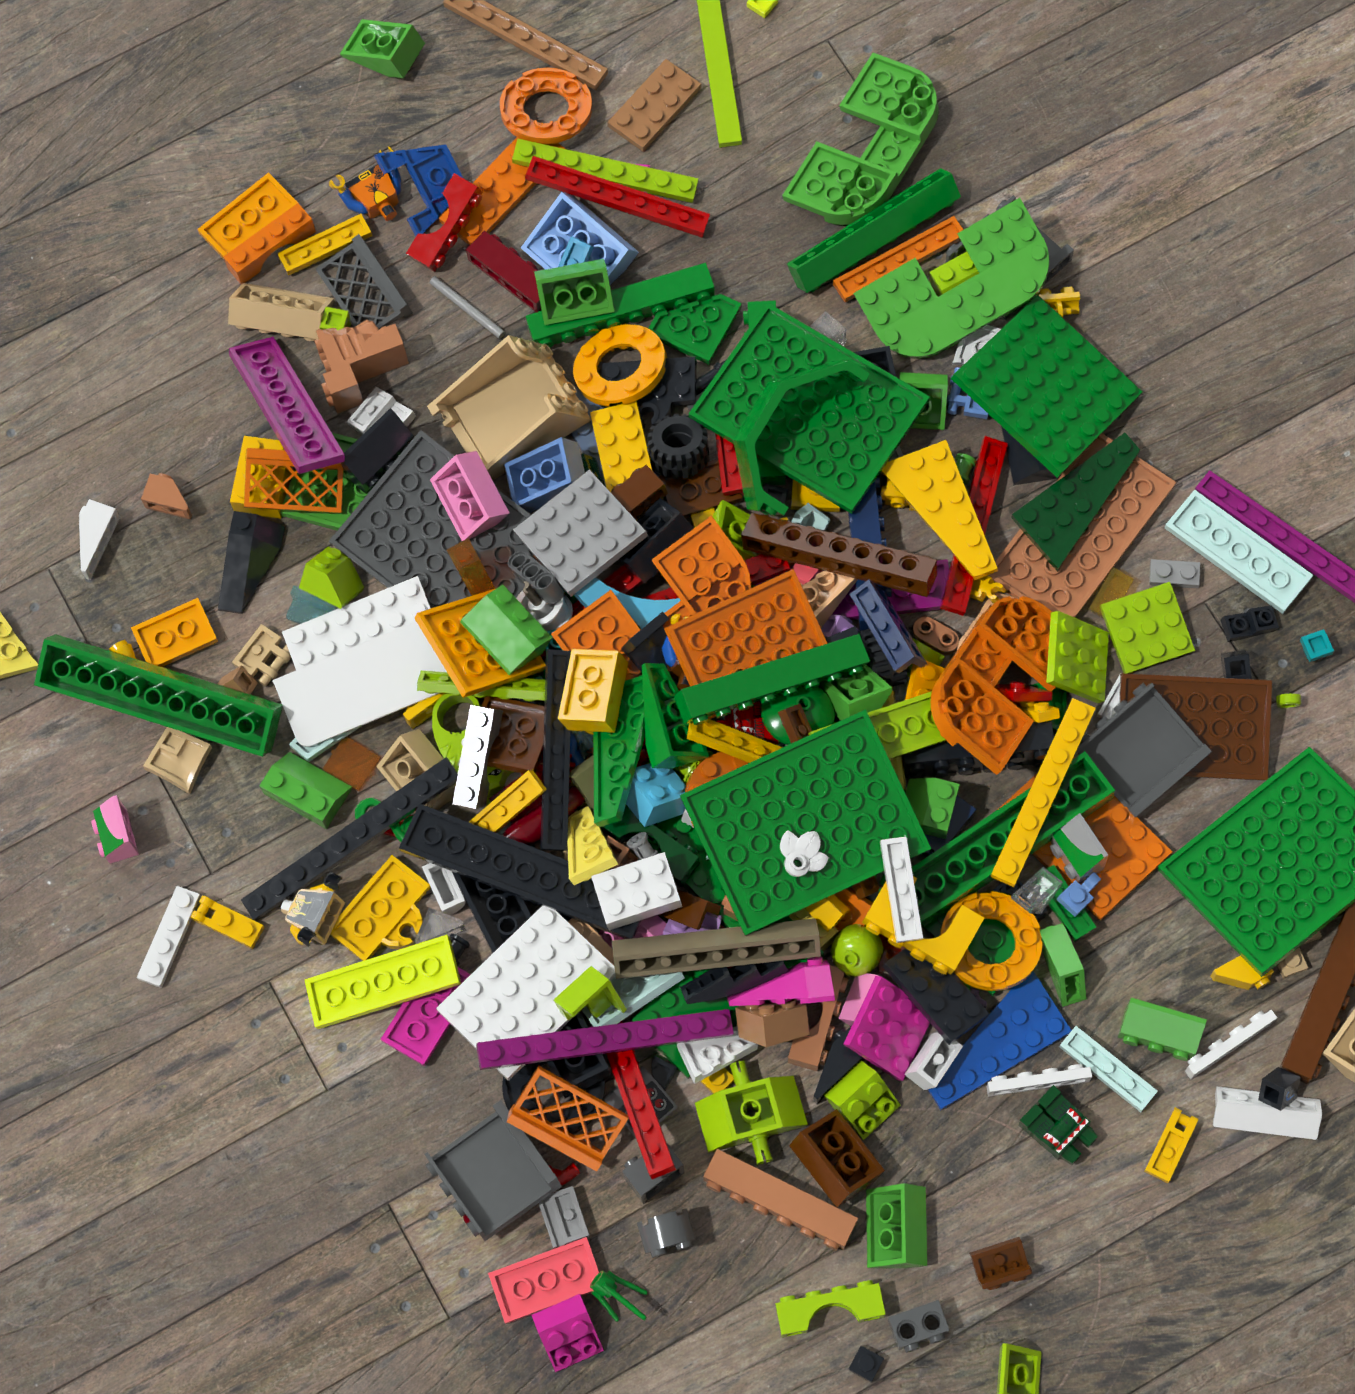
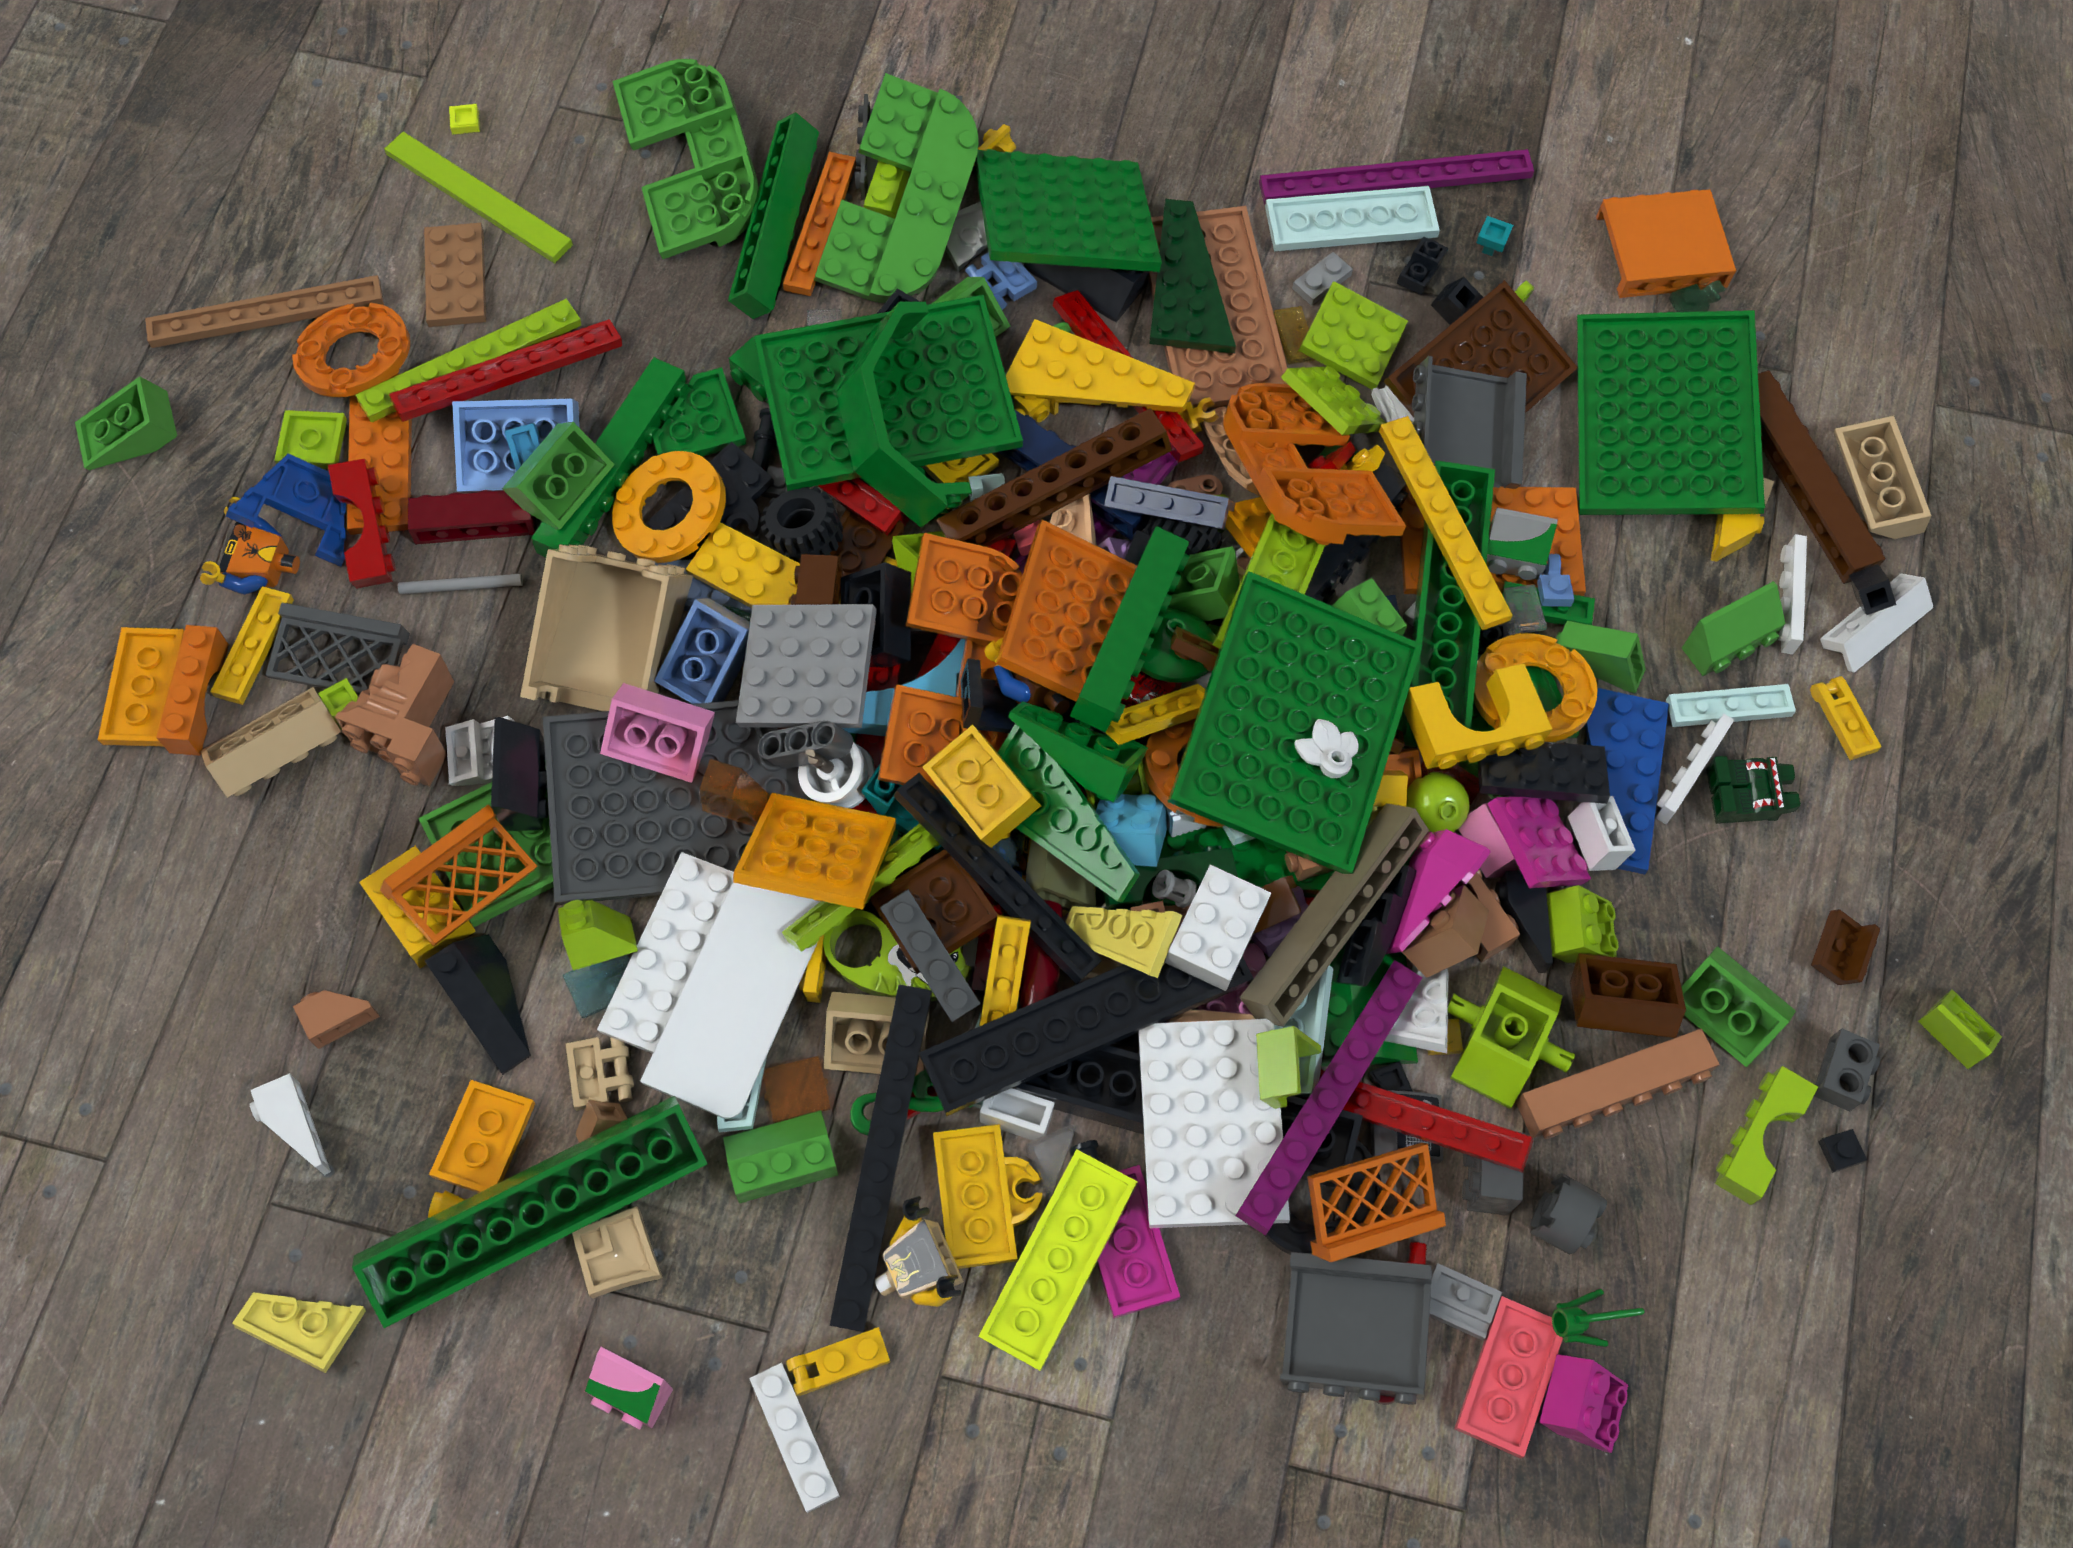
camera: 55 degrees left, 5 degrees down
(286, 405) = (378, 812): magenta plate -> none
(472, 143) = (312, 437): none -> lime plate
(506, 630) = (831, 814): bright green slope -> none
(901, 889) = (1443, 700): white plate -> none

